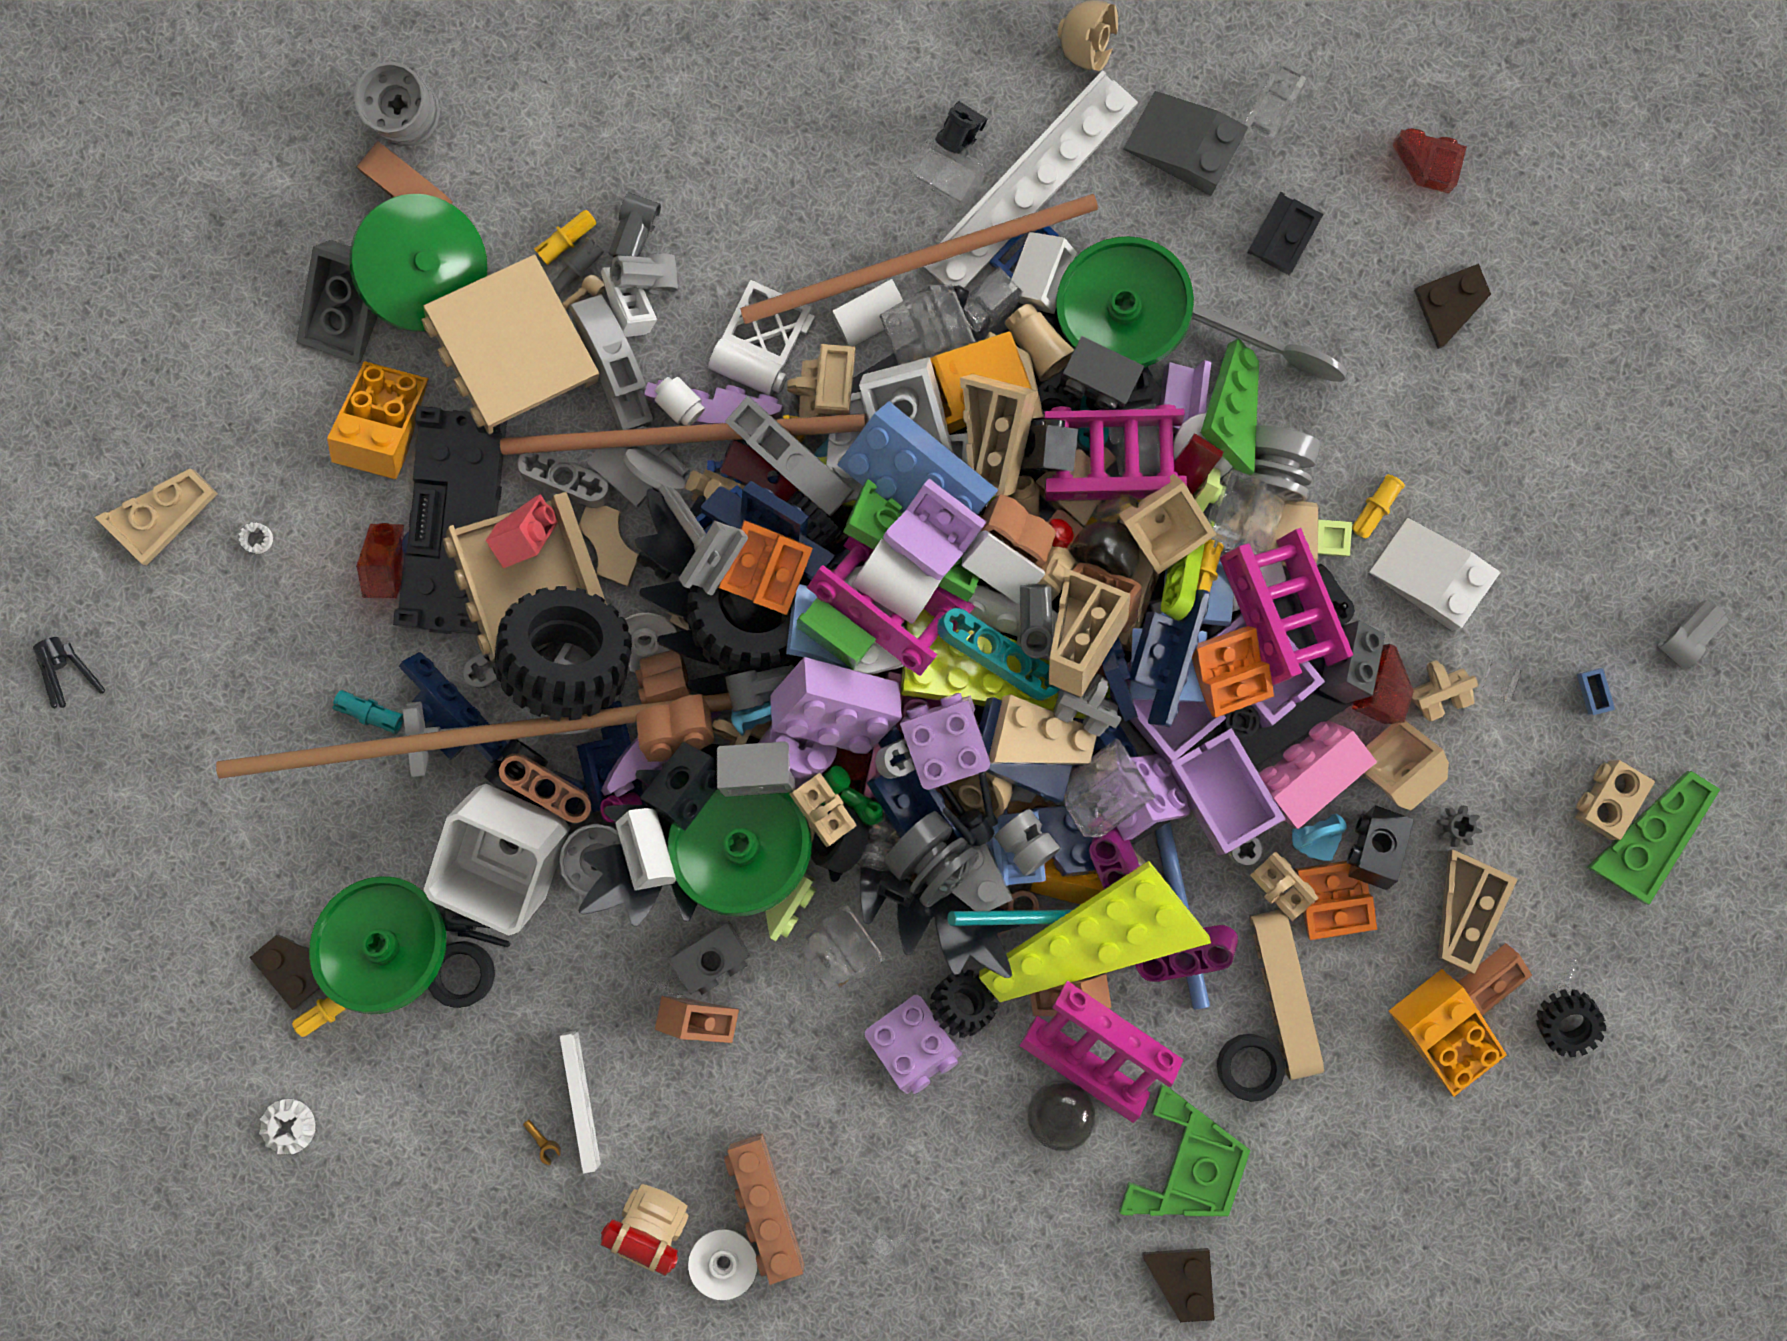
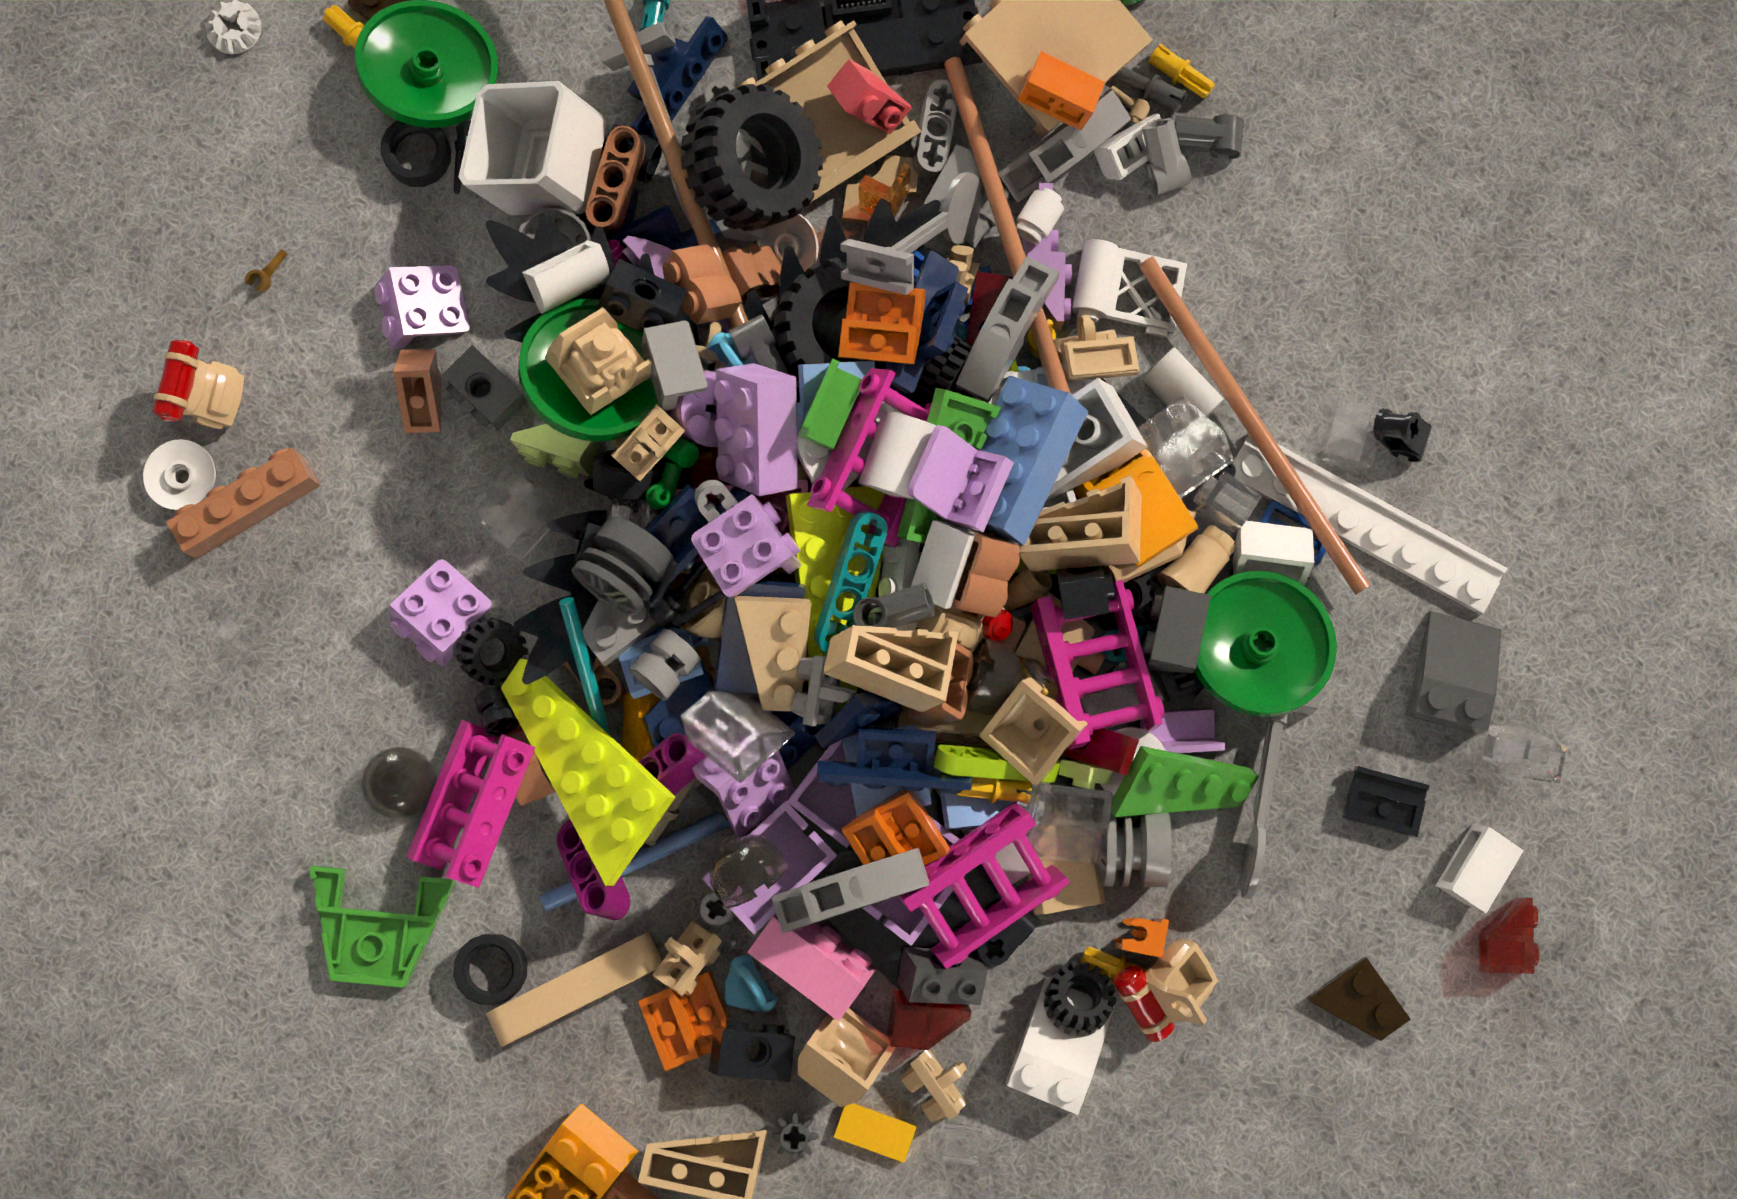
camera: 80 degrees right, 5 degrees down
(567, 350) = (1061, 91): none -> orange hinge
(580, 1101) = (313, 296): white tile -> none
(612, 1001) = (421, 303): none -> bracket
(624, 547) = (872, 191): none -> clear orange panel
(738, 838) = (597, 361): none -> tan brick
(1020, 1011) = (496, 712): none -> black wheel
(1087, 30) = (1541, 542): tan cylinder -> none
(1184, 1281) = (254, 951): dark brown wing -> none
(1231, 811) = (743, 867): none -> clear smoke cylinder
(1271, 721) = (850, 890): none -> light grey slope
(1334, 538) = (1071, 928): yellowish green plate -> none
(1361, 168) = (1479, 867): none -> white brick
(1361, 472) = (1150, 936): none -> orange hinge
(1396, 527) = (1071, 1016): none -> black tyre
(1408, 466) = (1168, 989): none -> tan piece
(1471, 754) = (875, 1131): none -> yellow tile

